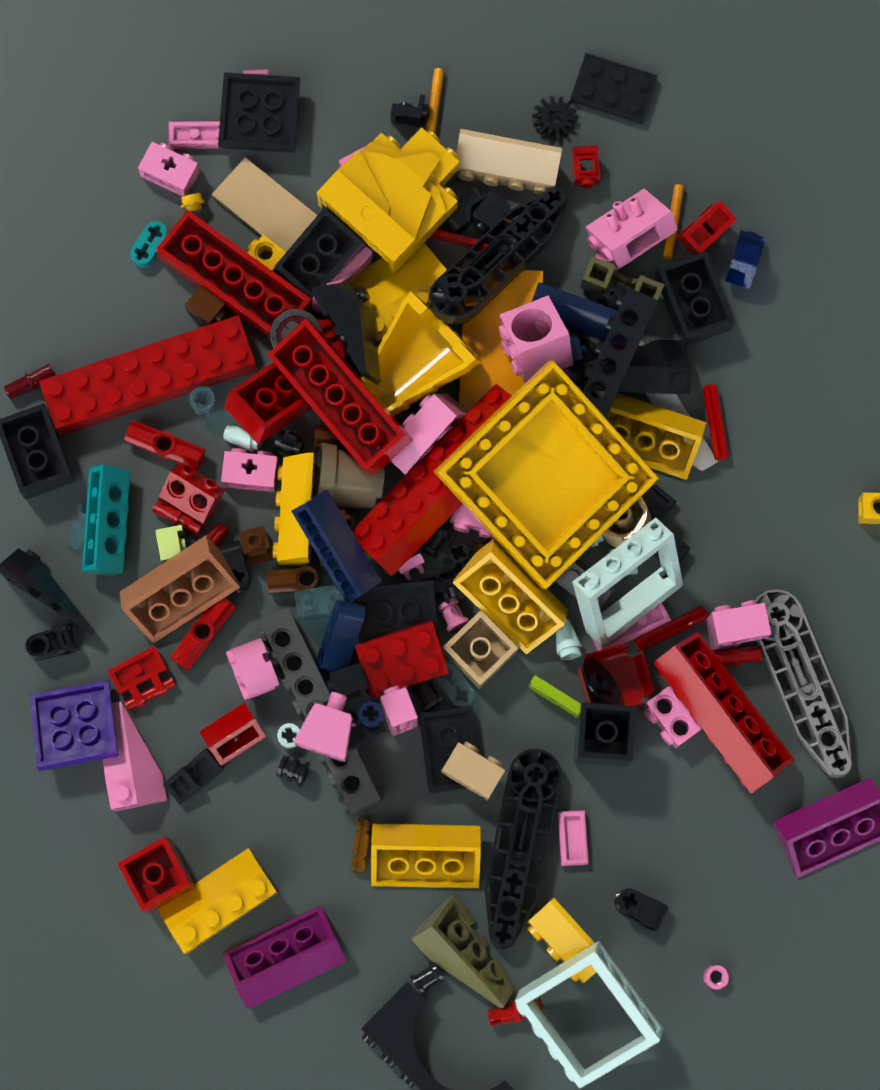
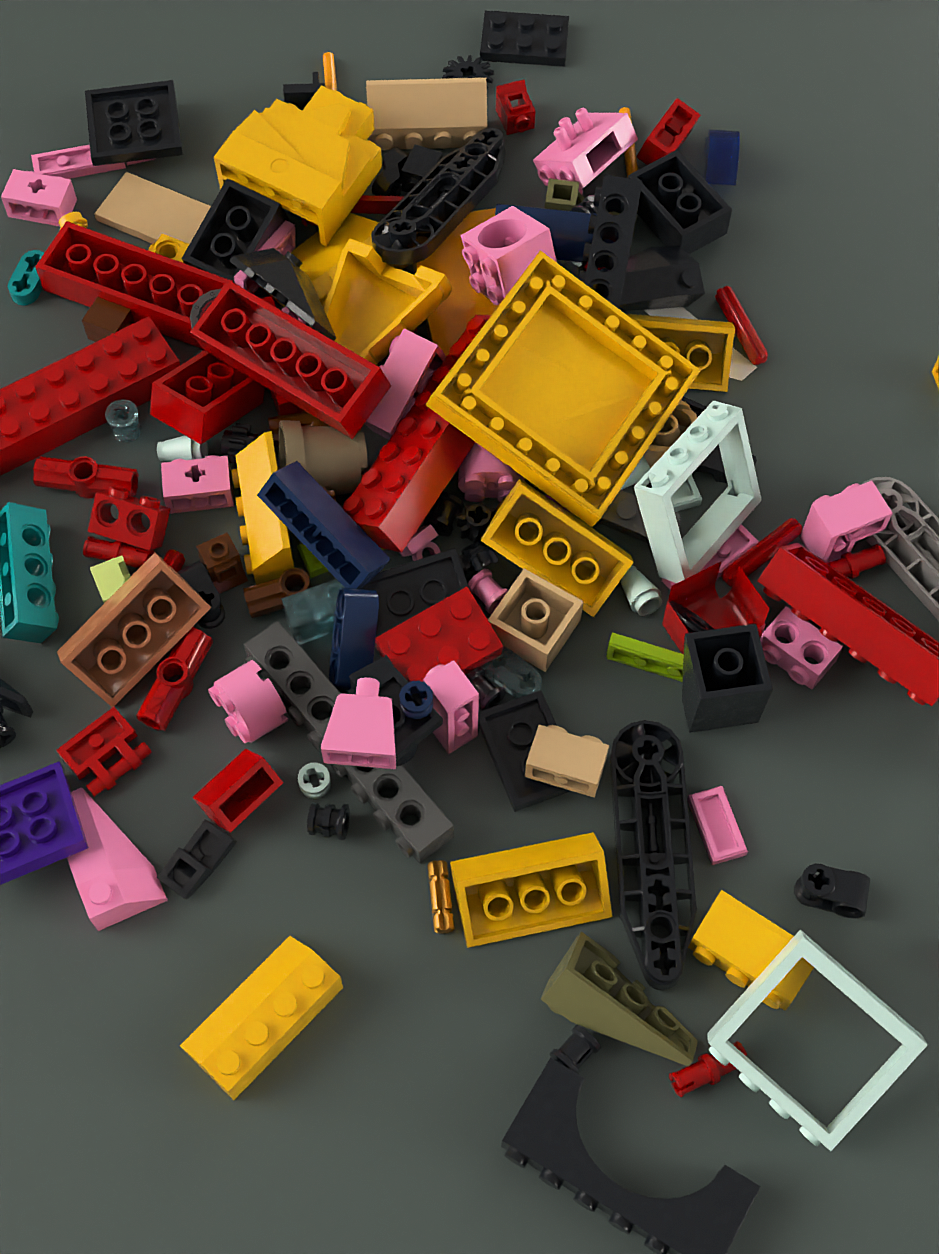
camera: 10 degrees left, 15 degrees down
(156, 875) = (168, 995): red brick -> none
(283, 957) = (371, 1069): magenta slope -> none

